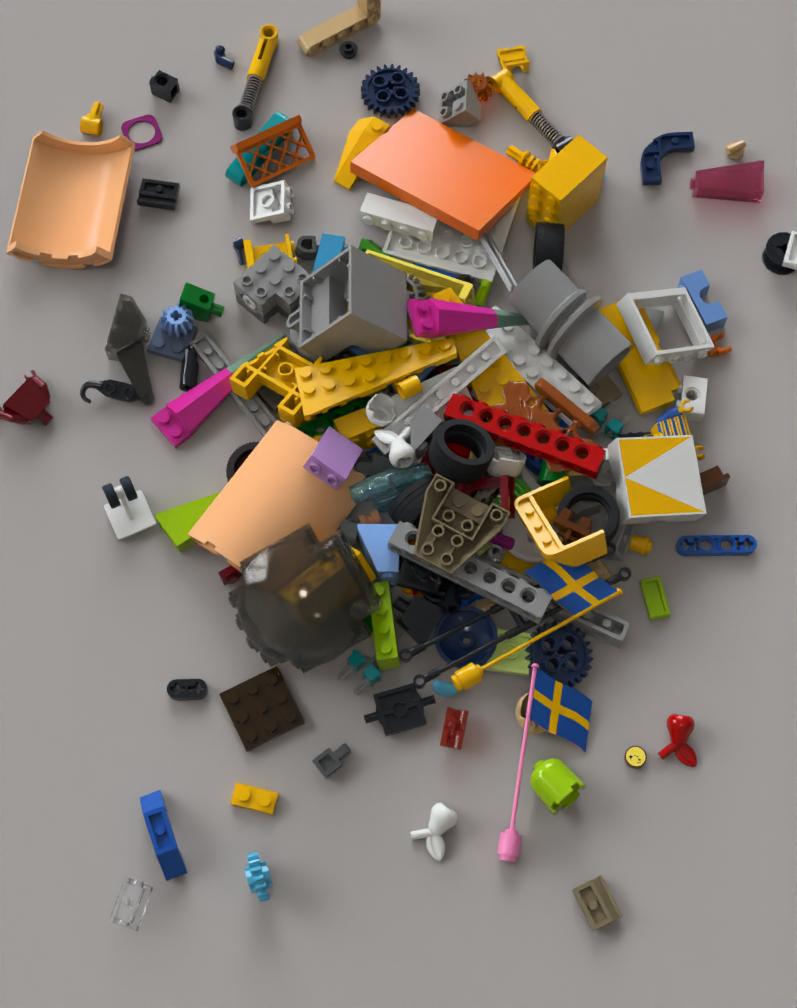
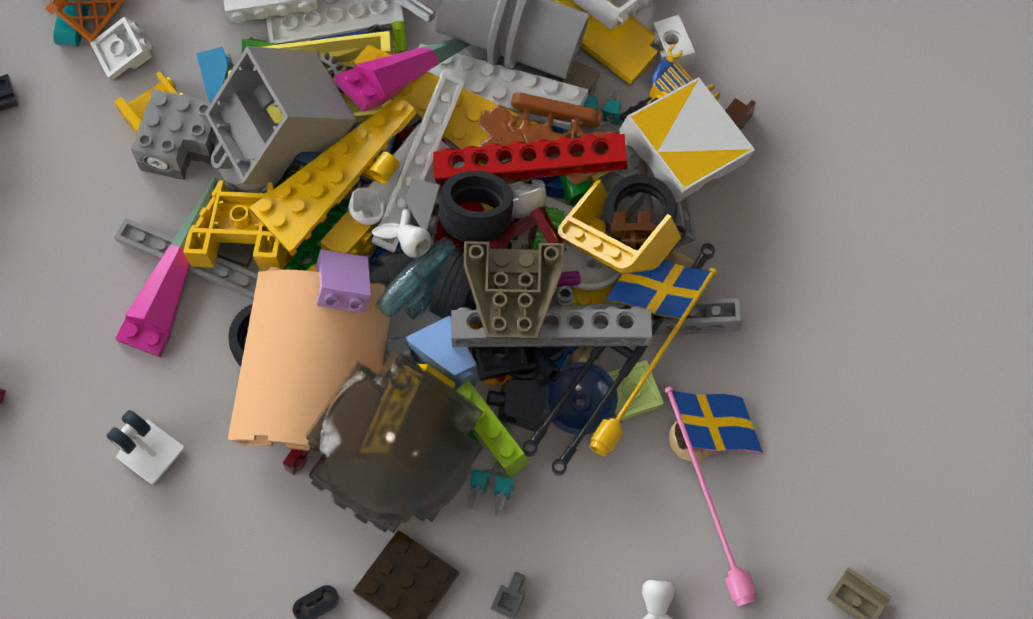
camera: 25 degrees left, 0 degrees up
(126, 345) = (48, 274): clear smoke slope -> none
(170, 346) = (92, 244): sand blue plate -> none
(178, 313) = (98, 219): light blue gear -> none
(181, 519) = (211, 429): lime slope -> none
(189, 370) = (130, 267): black piece -> none
(200, 302) = (102, 191): green torso -> none
(238, 245) = (109, 109): dark blue hand -> none
(307, 248) = (187, 77): dark grey plate -> none
(374, 518) = (415, 324): nougat wheel -> none
(399, 709) = (552, 507): black plate -> none
(444, 689) = (586, 462): medium azure arm -> none
(454, 728) = (619, 497): clear red hips -> none
(555, 784) = (752, 499): lime cylinder -> none
(562, 671) = (695, 382): dark blue gear -> none
(635, 757) = (815, 431): light yellow tile -> none
(641, 544) = (703, 215): yellow hose -> none
(654, 598) = (746, 262): lime tile -> none
(679, 731) = (845, 382): red piece -> none
(716, 549) = (778, 180): blue beam -> none

